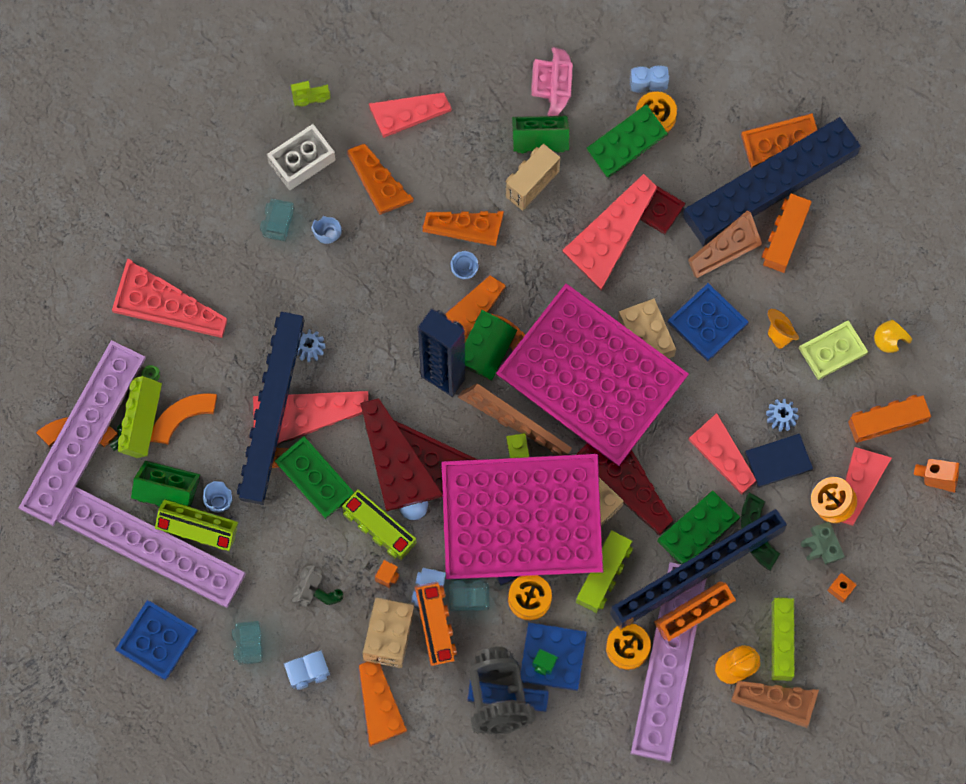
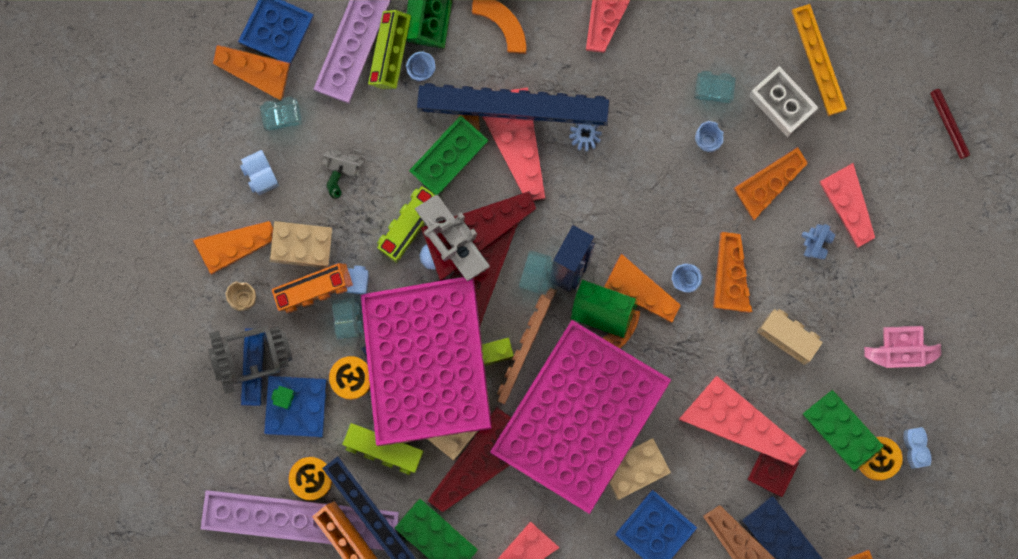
camera: 85 degrees right, 10 degrees up
(197, 664) = (260, 71): none -> orange wing
(262, 122) = (819, 60): none -> light orange plate
(303, 94) = (852, 95): lime plate -> none
(341, 14) = (950, 124): none -> dark red axle
(387, 574) = (360, 238): orange plate -> none
(397, 472) = (458, 235): none -> light grey piece
(434, 699) = (240, 296): none -> tan hair
(440, 144) = (815, 240): none -> medium blue hips
(442, 407) = (535, 272): none -> clear light blue brick
(540, 130) = (841, 340): green slope -> none

